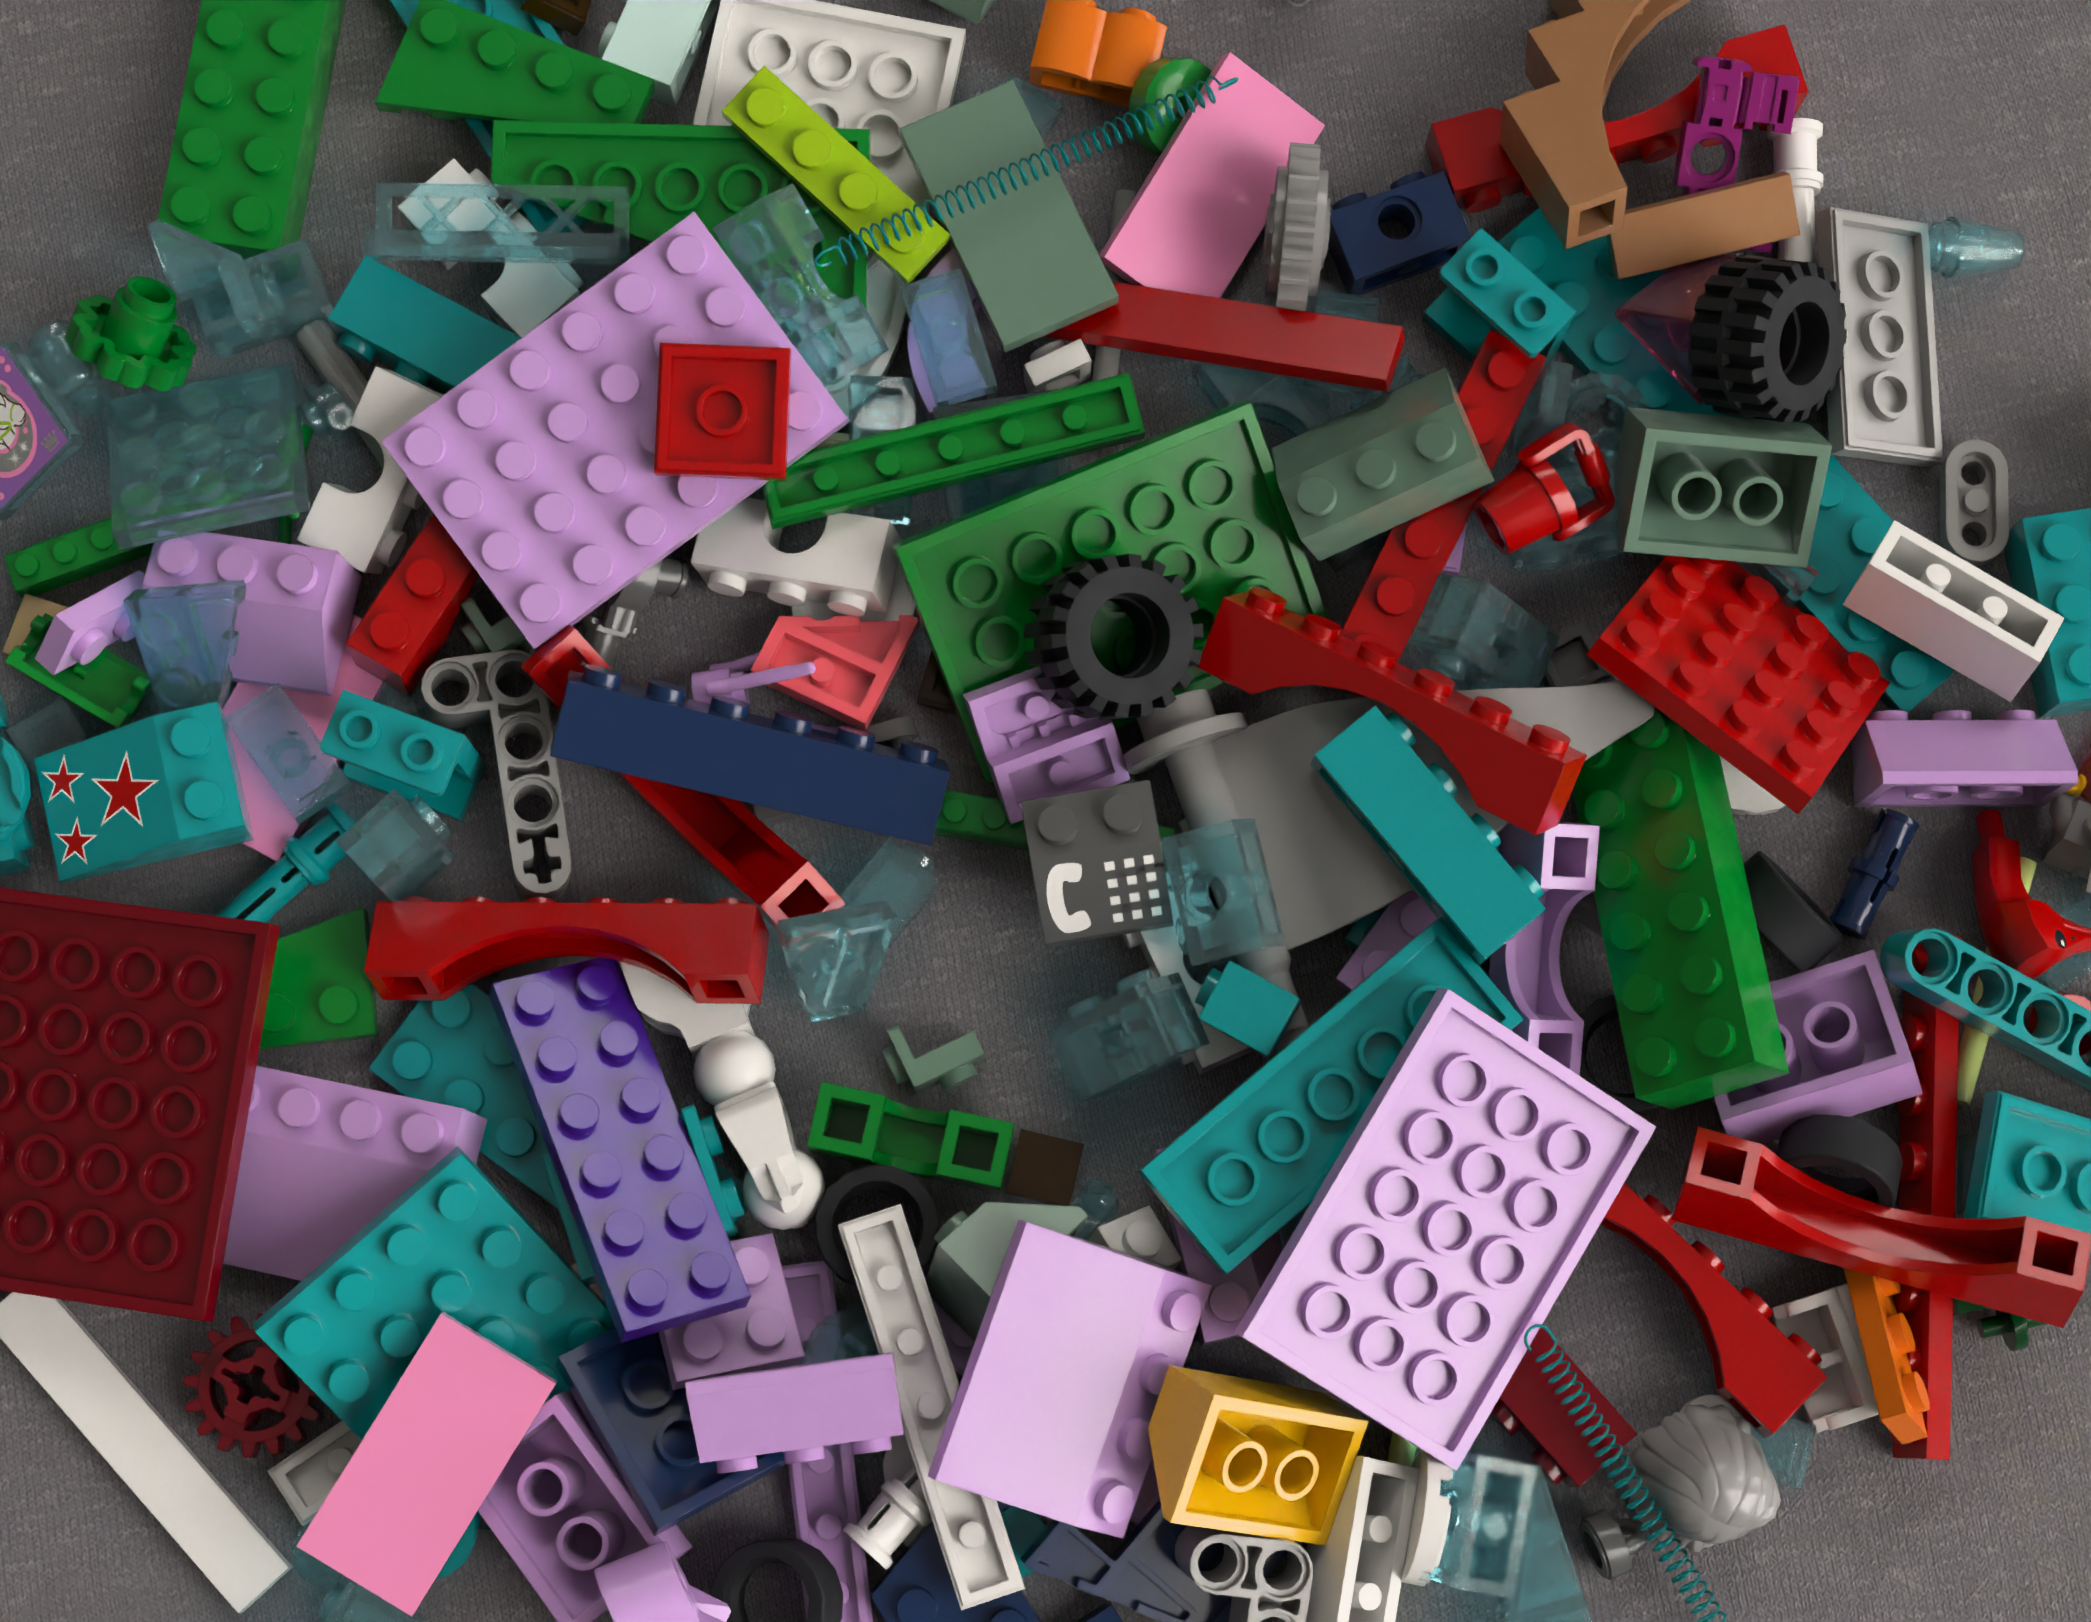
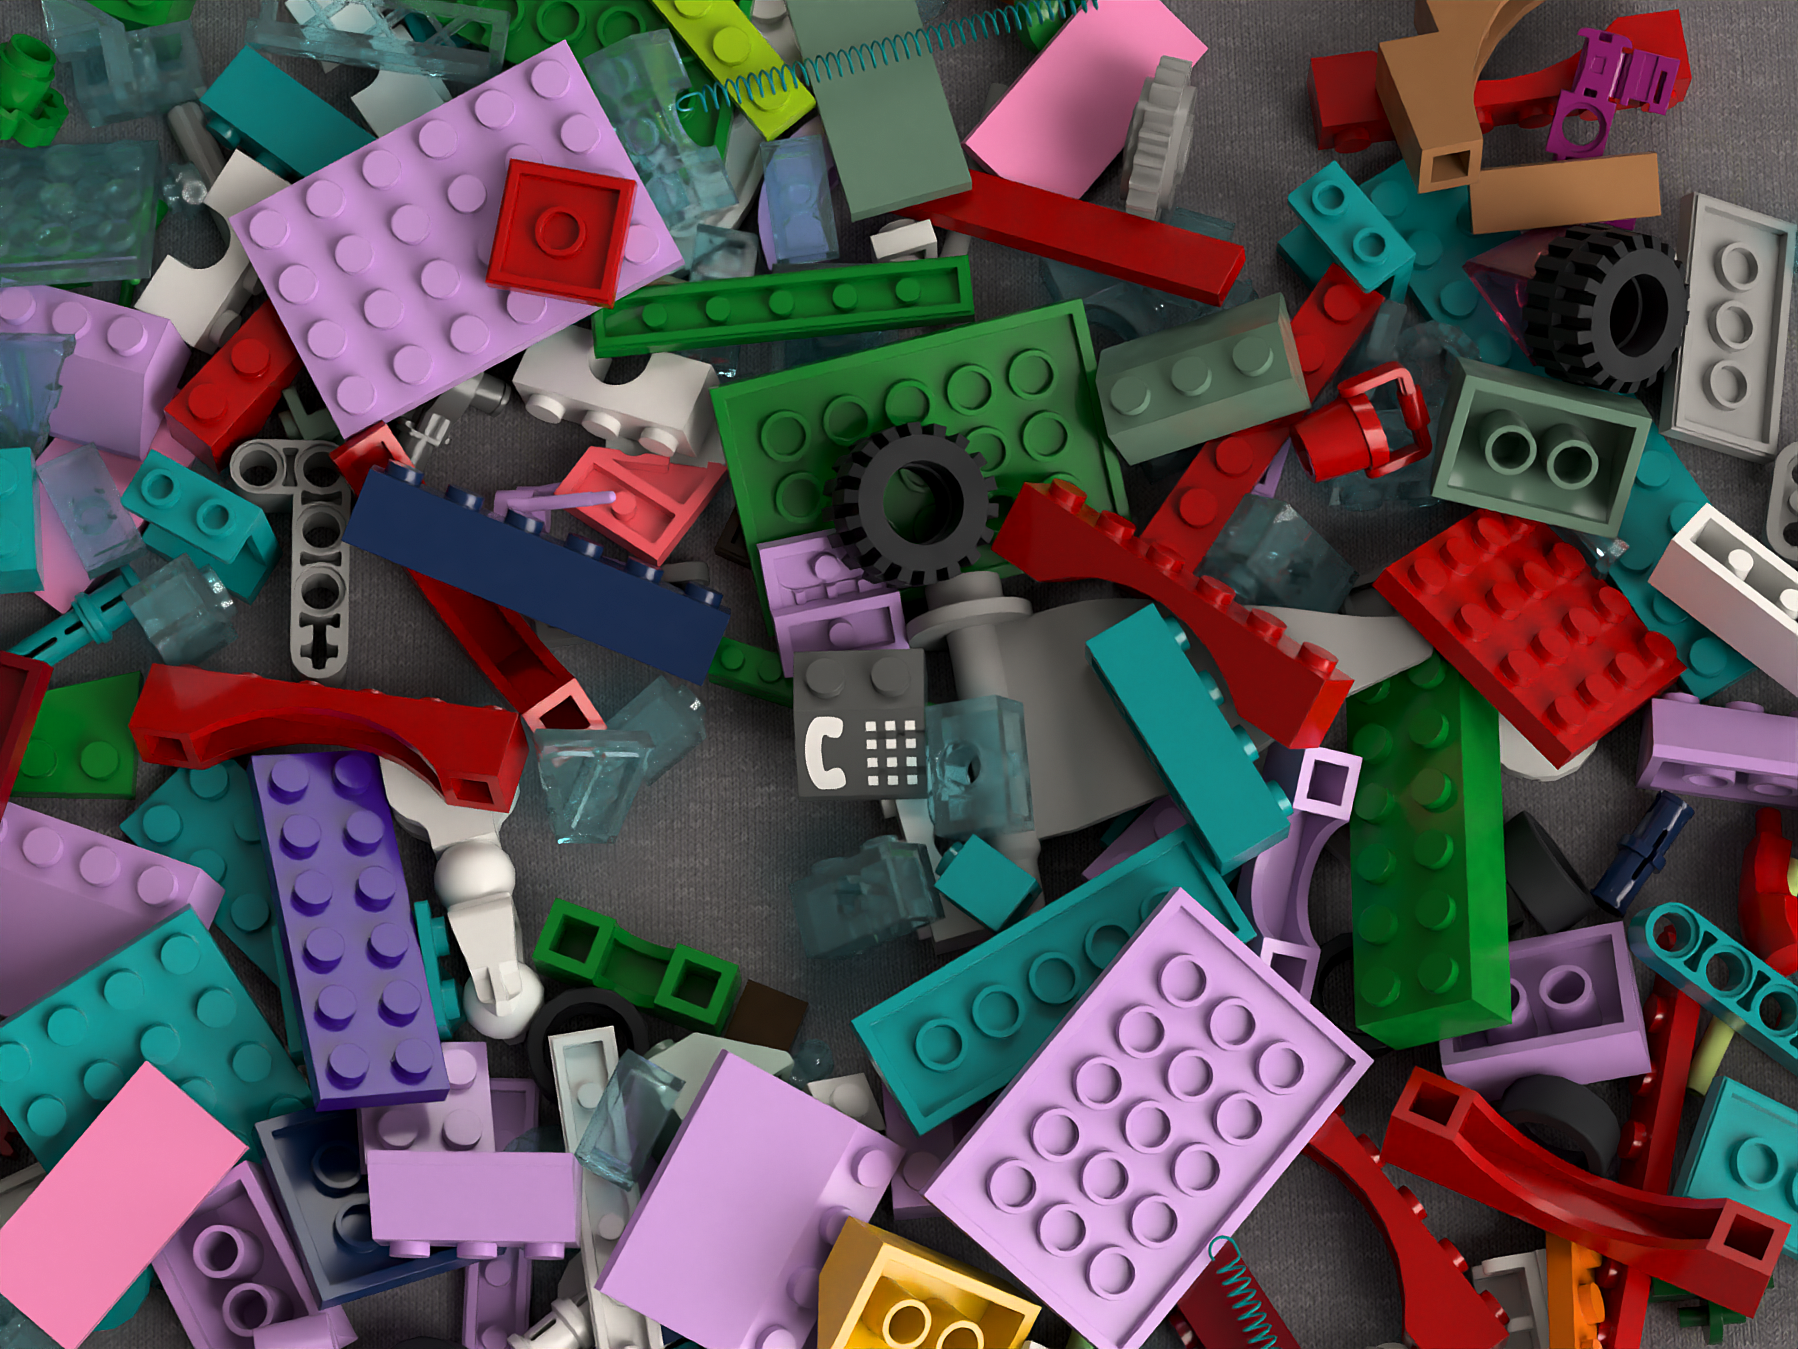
camera: 15 degrees right, 5 degrees down
(935, 1303) = (628, 1120): none -> clear light blue tile
(948, 1064) = (683, 905): sand green bracket -> none
(1372, 260) = (1237, 187): dark blue brick -> none
(1798, 156) = (1674, 143): white pin -> none

